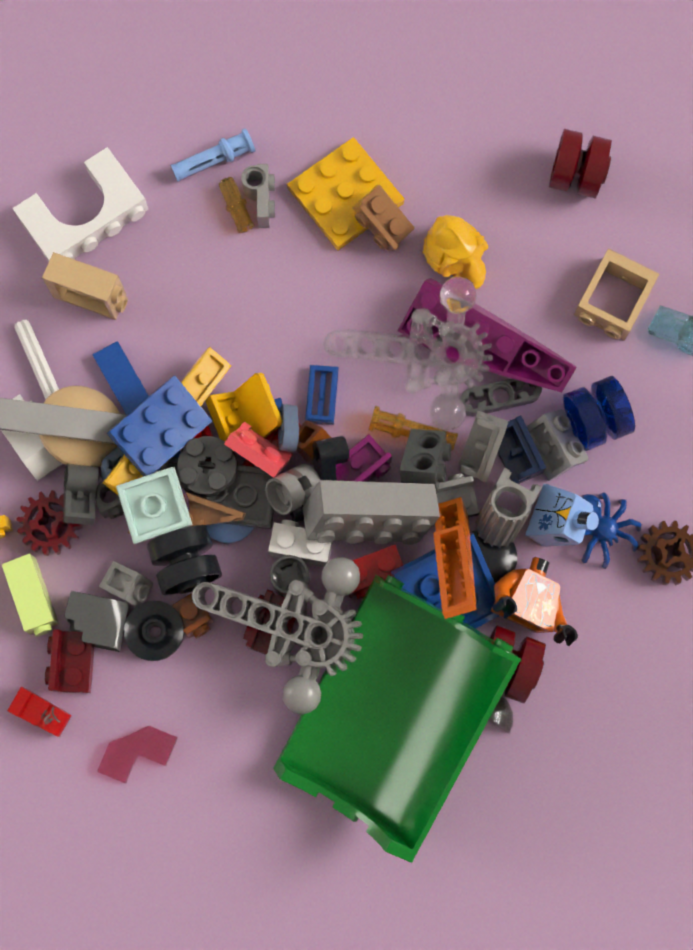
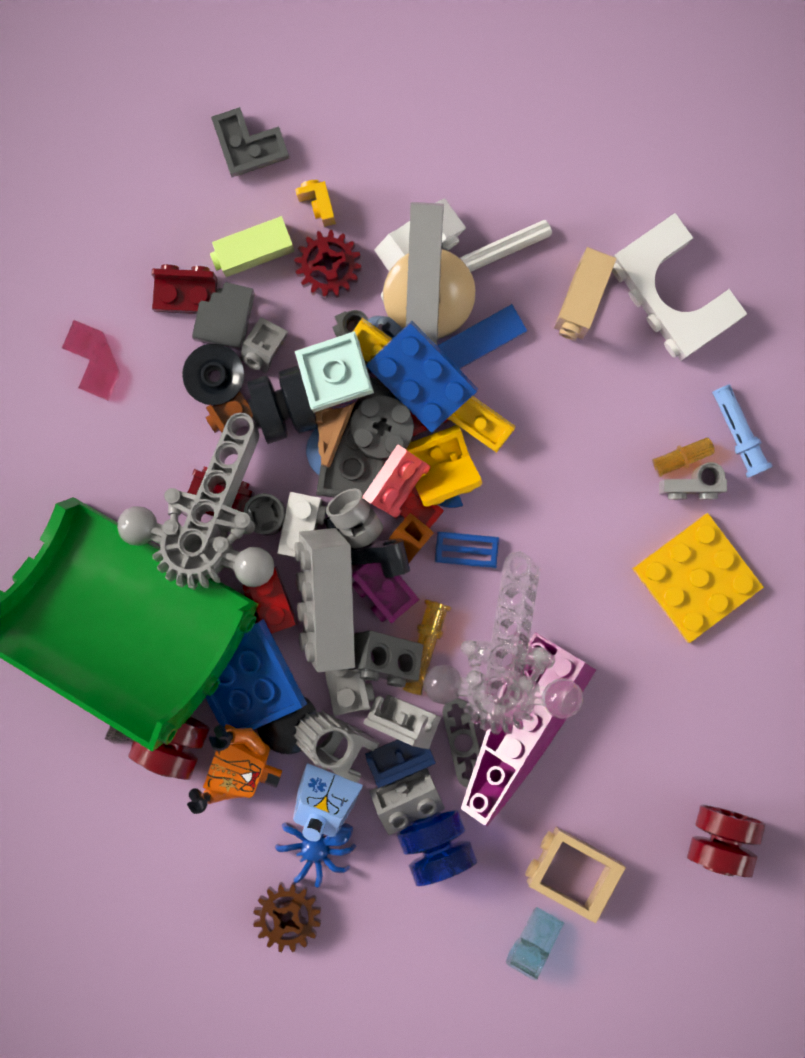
camera: 90 degrees right, 10 degrees up
(39, 712) = (133, 260): red leg -> none
(79, 494) = (353, 294): dark grey plate -> none
(289, 430) = (419, 514): sand blue beam -> none
(383, 218) = (664, 619): medium nougat bracket -> none
(454, 559) = (263, 686): orange slope -> none
(456, 249) = (626, 698): yellow head -> none

